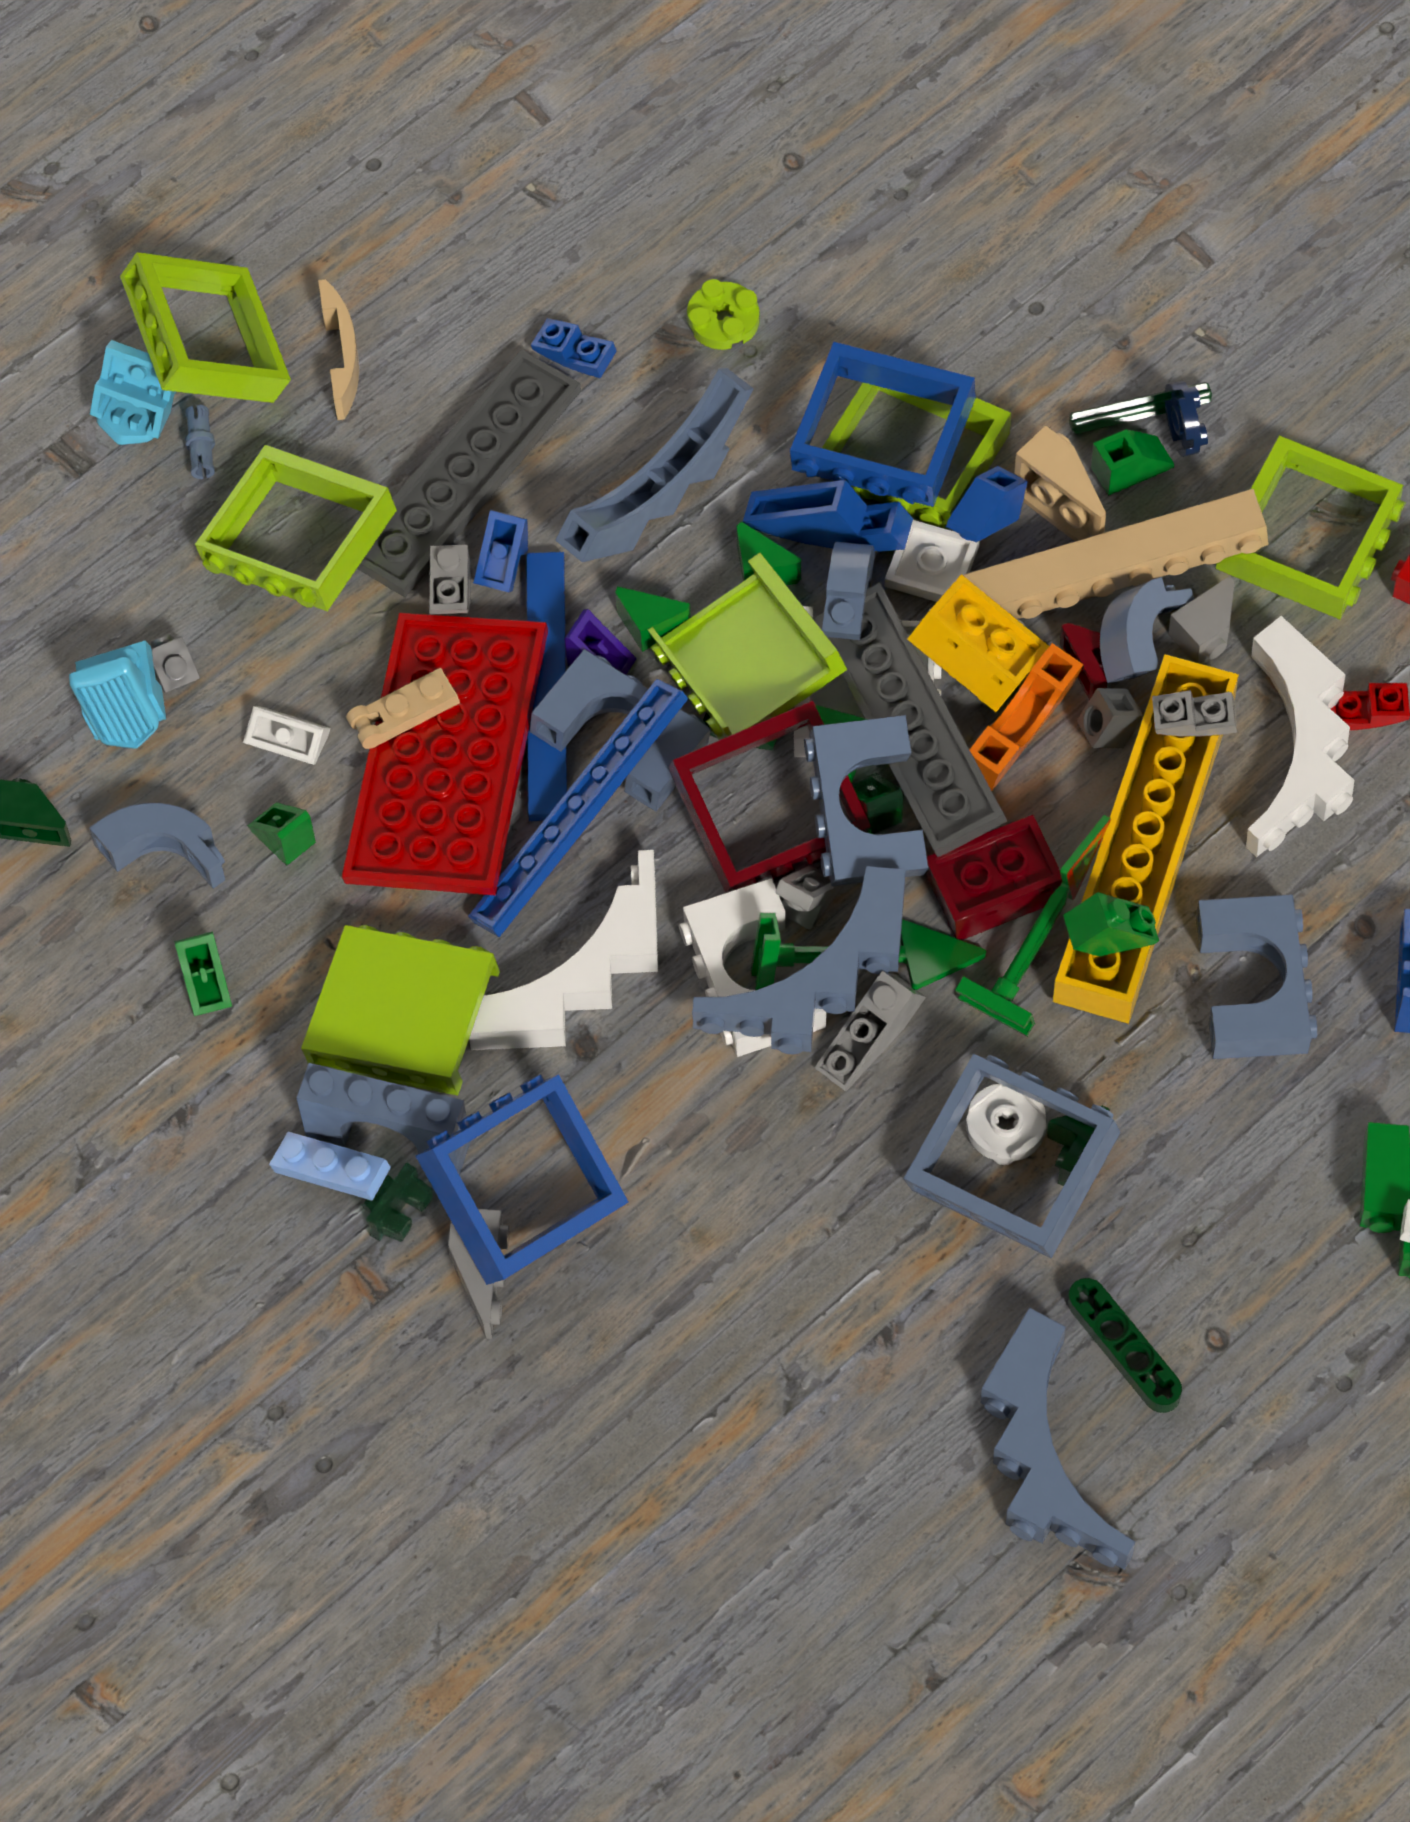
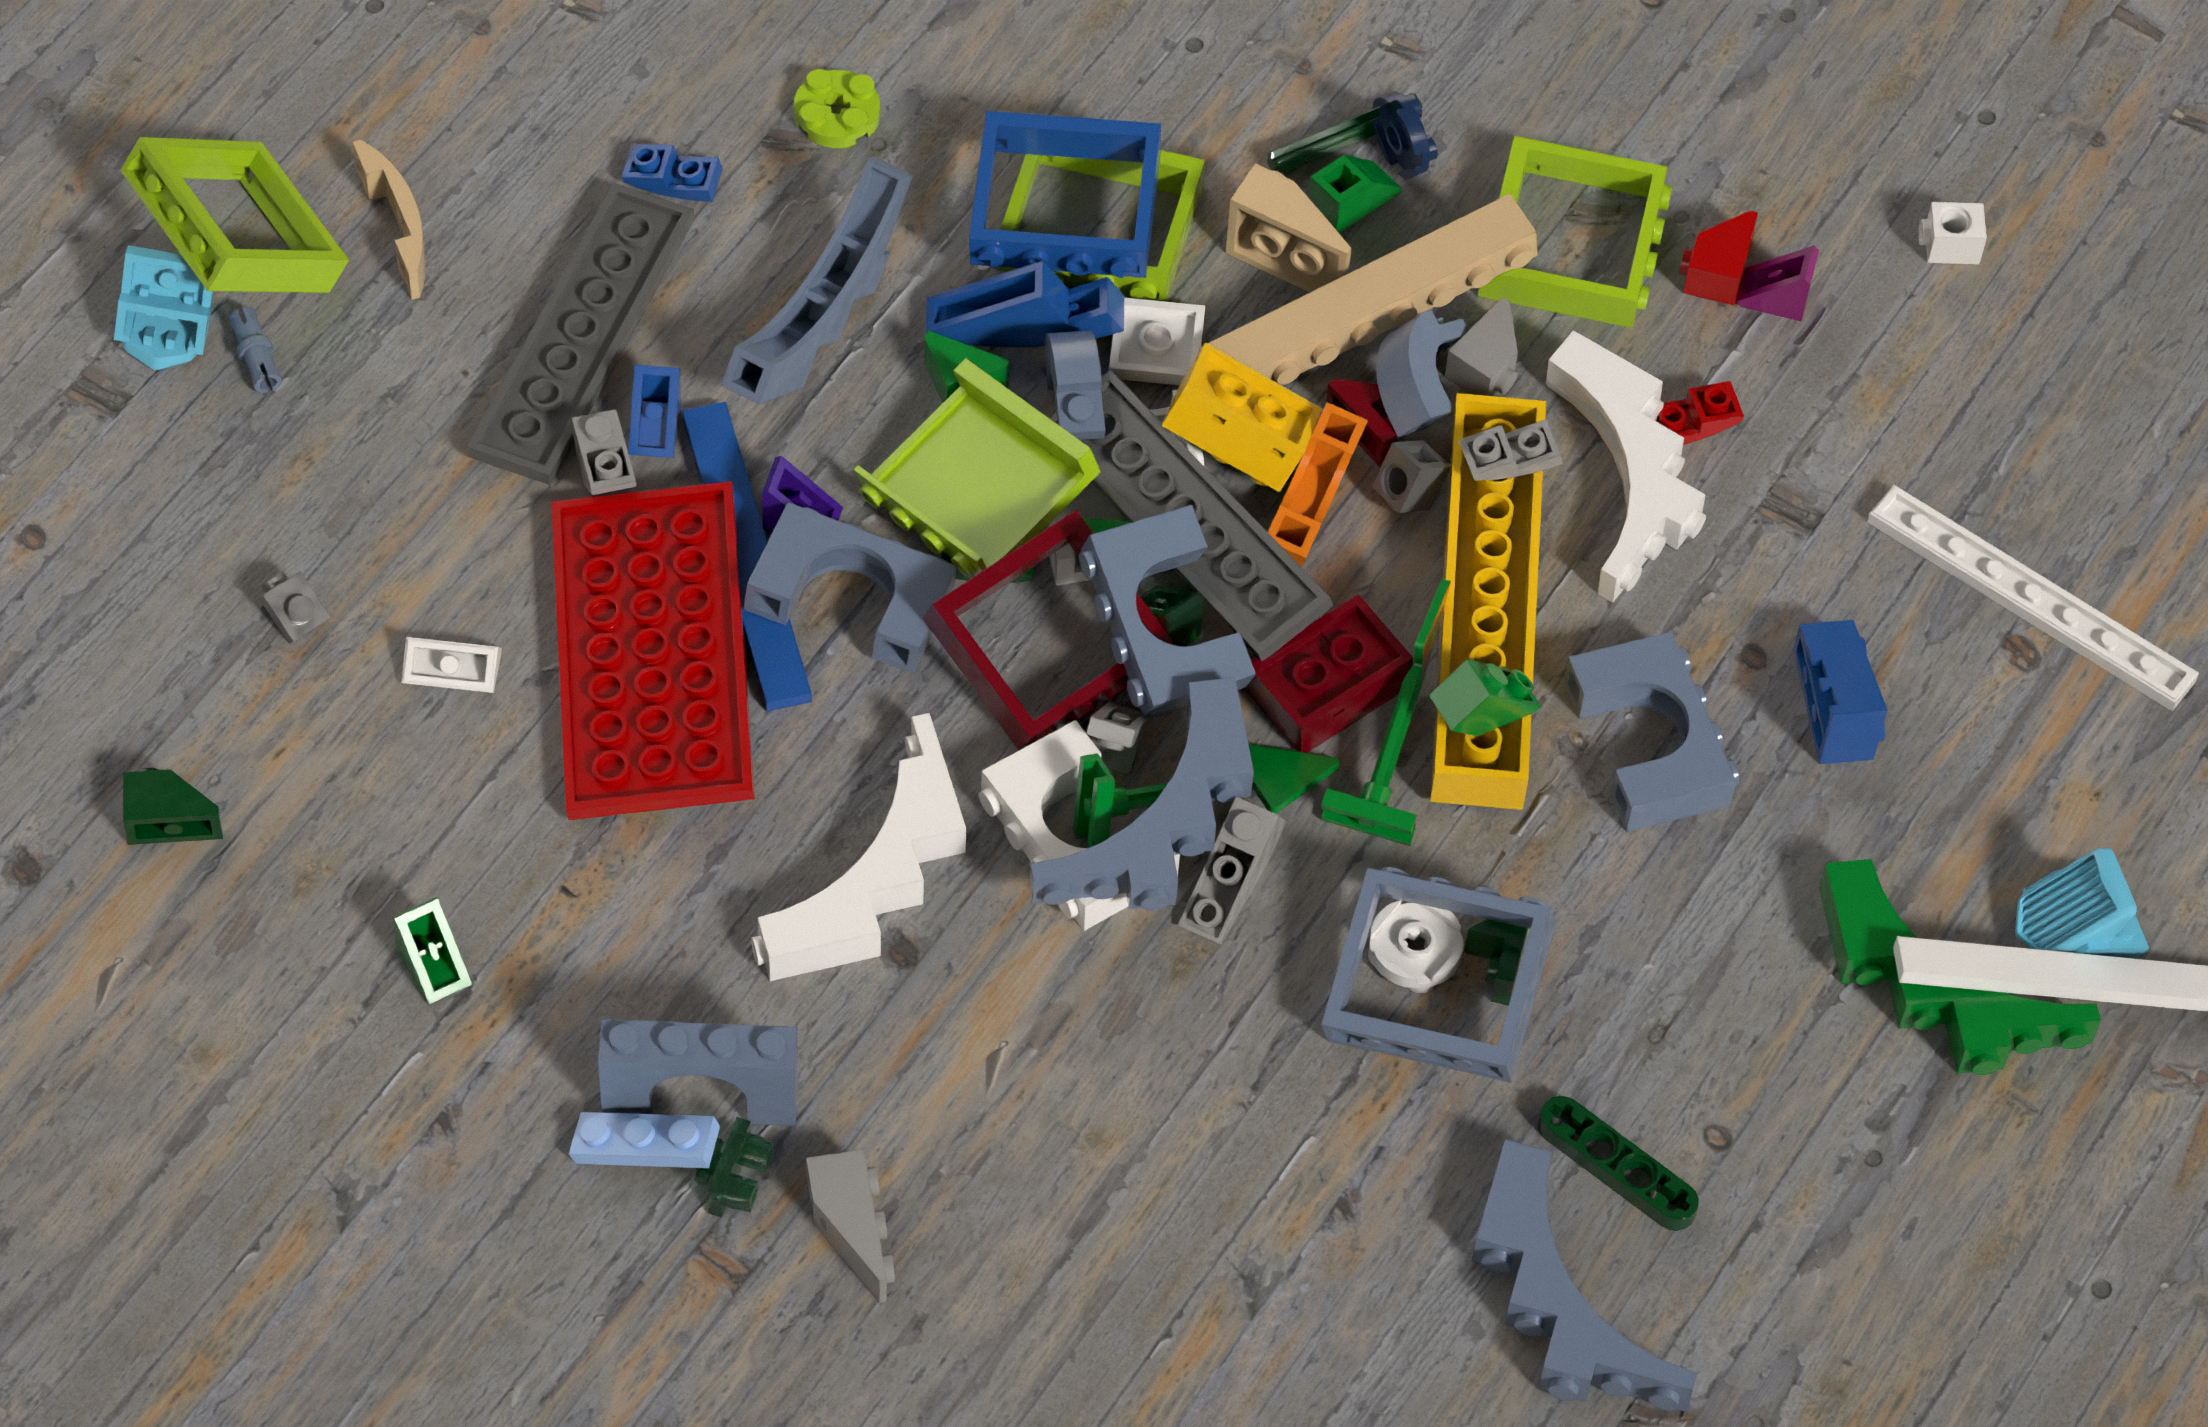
camera: 20 degrees left, 5 degrees down
(120, 695) = (243, 652): medium azure piece -> none
(158, 827) = (330, 796): sand blue arch -> none
(284, 831) = (481, 771): green slope -> none
(317, 479) = (407, 368): lime window -> none
(399, 1008) = (678, 942): lime panel -> none
(403, 709) = (589, 607): tan plate -> none
(464, 1212) = (830, 1149): blue window -> none
(578, 807) = (828, 681): blue tile -> none
(643, 610) = (838, 451): green slope -> none
(988, 505) = (1208, 265): blue slope -> none

